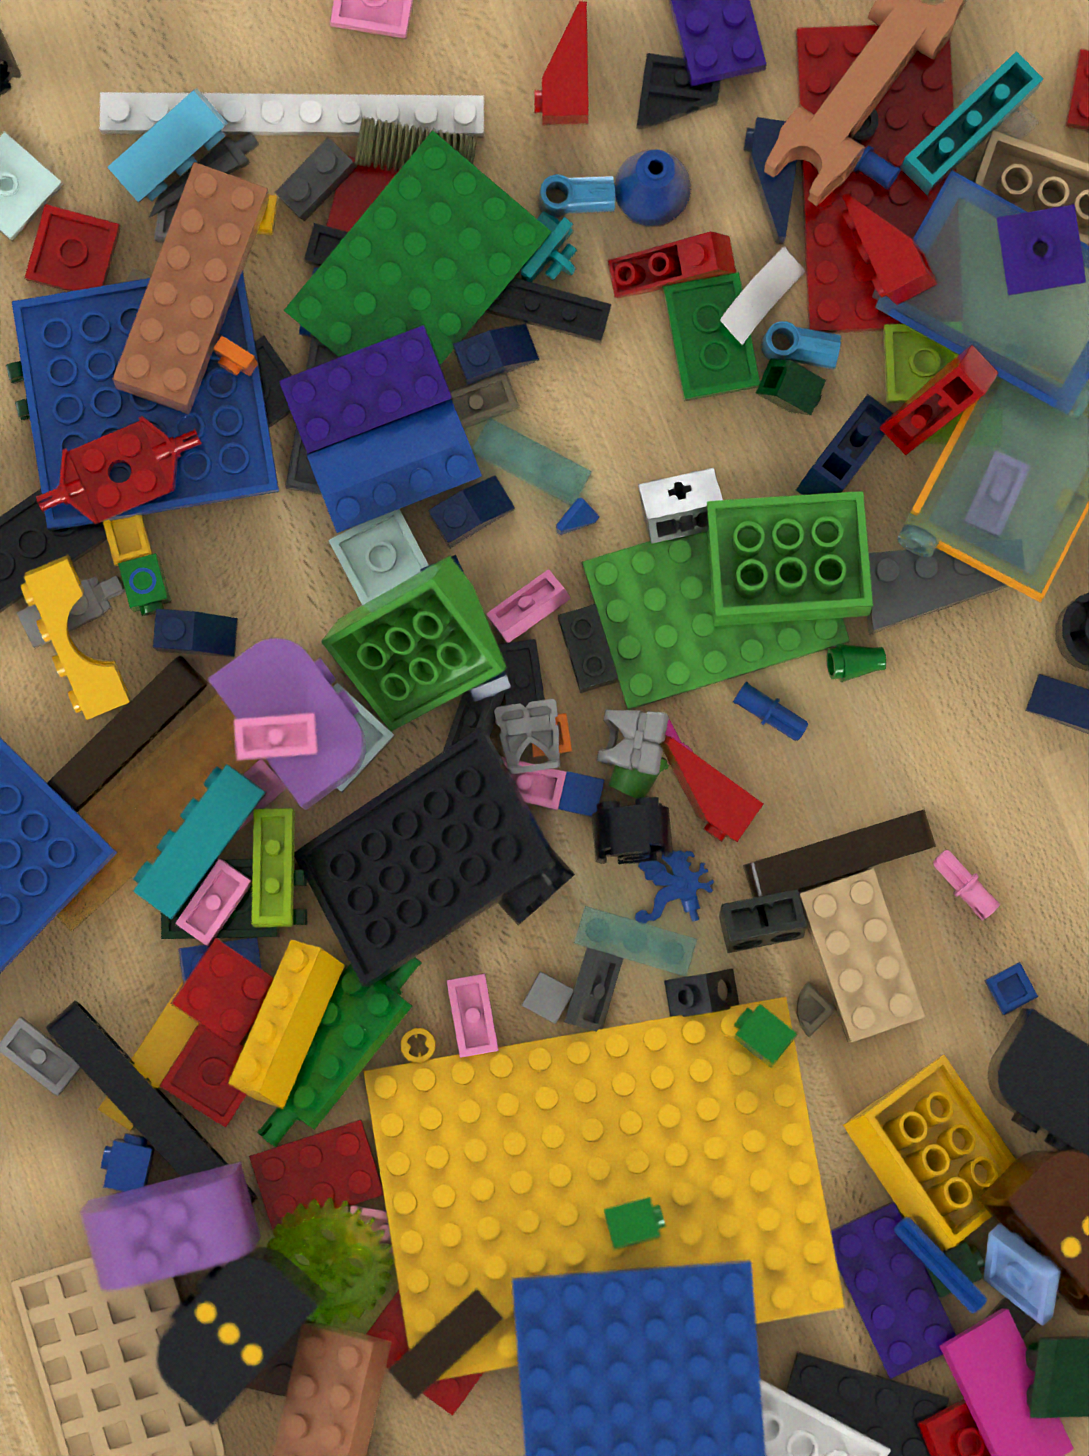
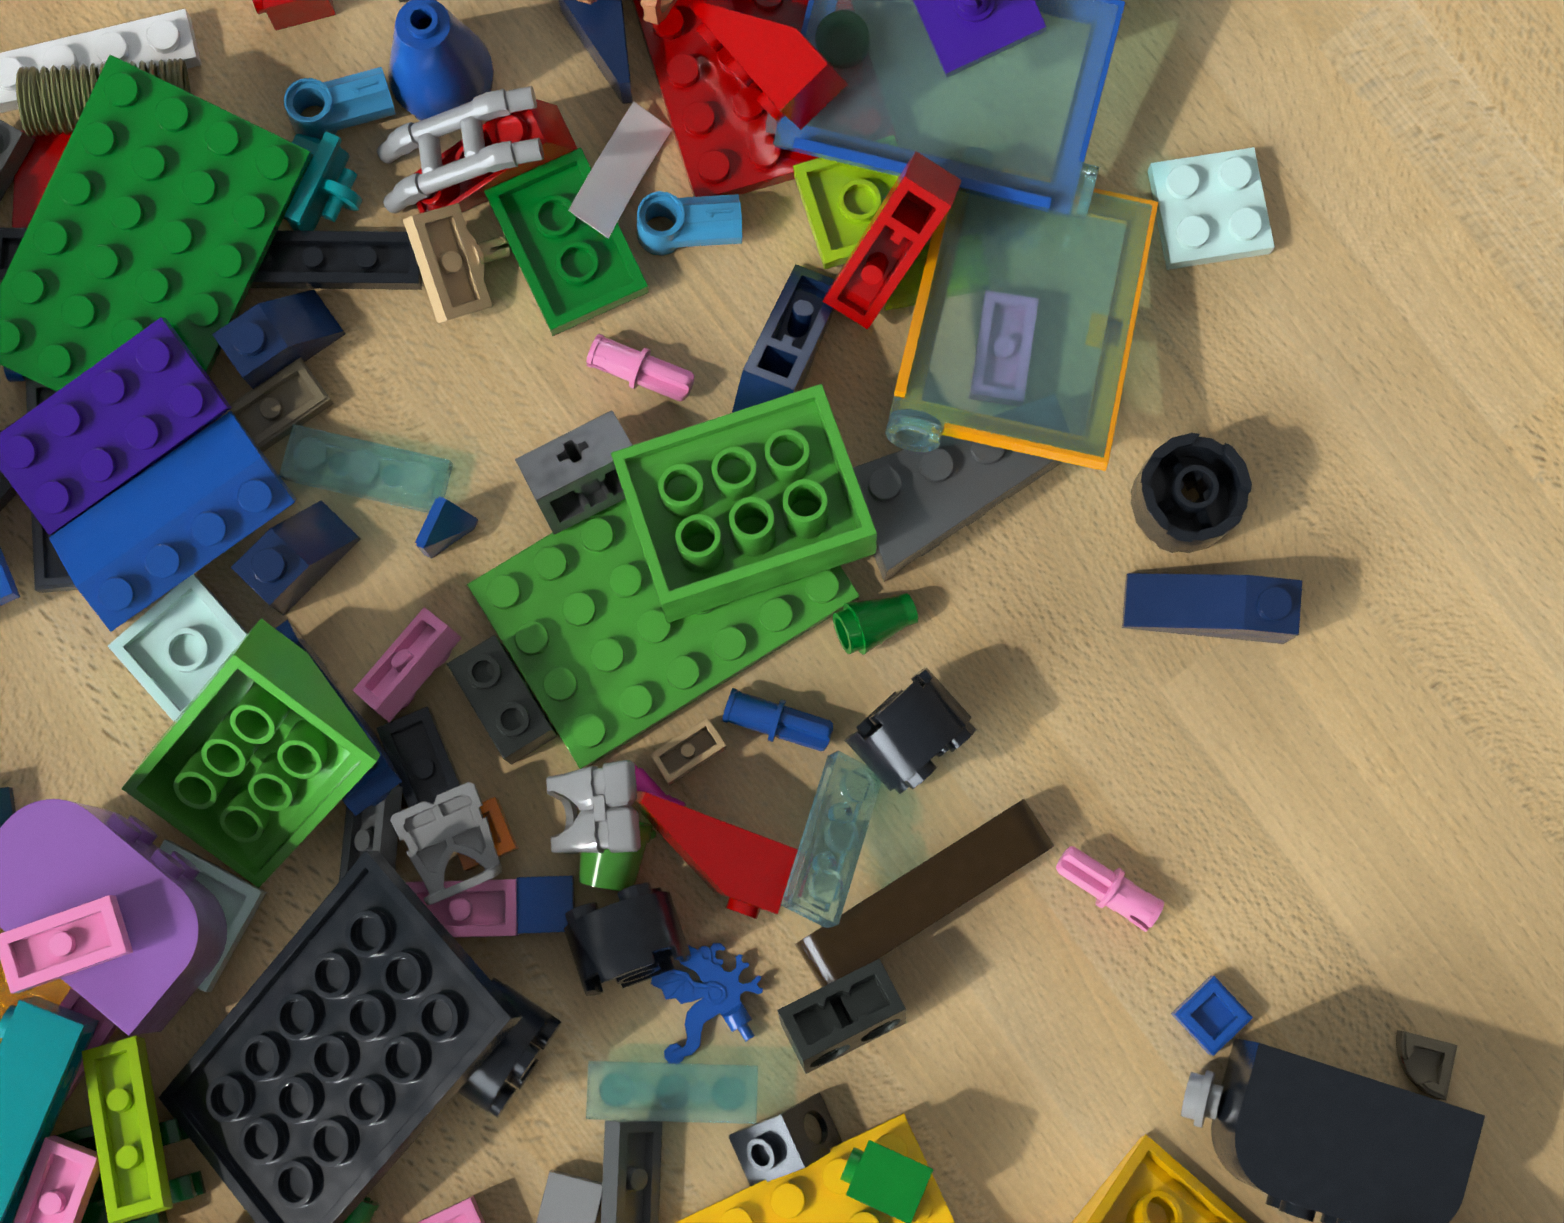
camera: 15 degrees left, 5 degrees down
(628, 332) = (452, 261): none -> tan plate
(666, 268) = (477, 157): none -> light grey piece
(704, 716) = (688, 751): none -> tan piece
(739, 441) = (640, 368): none -> bright pink axle
(787, 802) = (832, 840): none -> clear light blue plate
(791, 386) = (689, 277): dark green brick -> none
(812, 1009) = (946, 1120): dark tan tile -> none
(858, 743) = (910, 731): none -> black brick
(861, 956) = (993, 1029): tan brick -> none
(943, 249) = (843, 39): none -> clear green tile
(988, 1040) = (1201, 1098): none -> light grey plate

